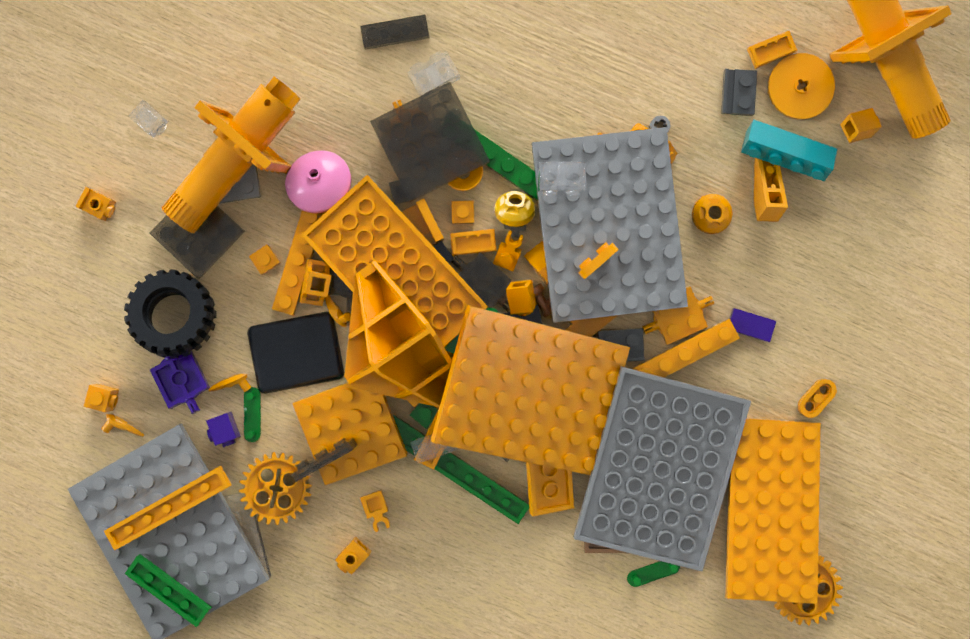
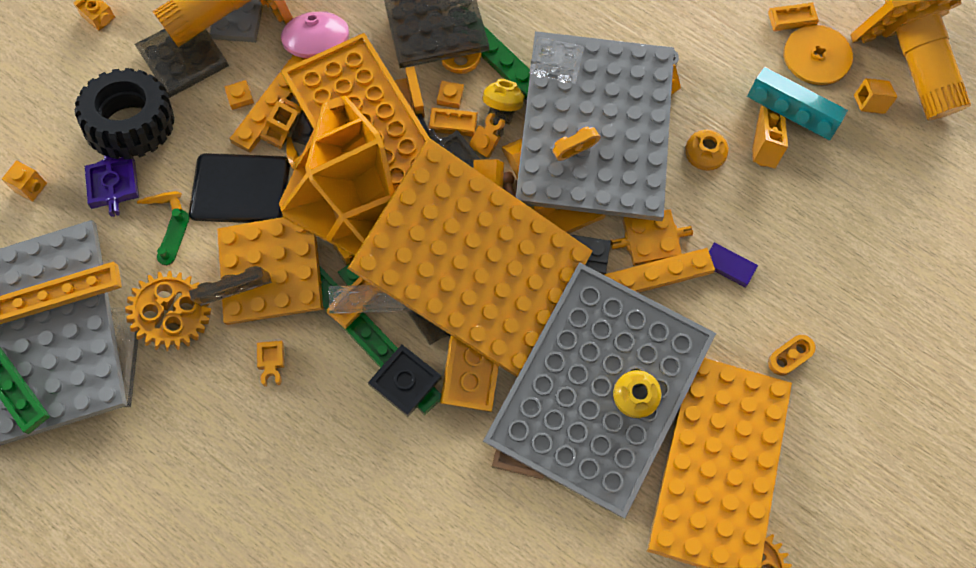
camera: 15 degrees right, 20 degrees down
(115, 421) = (28, 209): light orange bar -> none
(223, 429) = (136, 240): dark purple brick -> none
(352, 556) = (227, 405): light orange brick -> none
(398, 193) = (391, 62): clear smoke plate -> none
(496, 504) = (404, 380): none -> black plate
(651, 573) = (566, 510): green piece -> none
(688, 461) = (628, 403): none -> yellow piece
(739, 92) = (753, 47): dark grey plate -> none

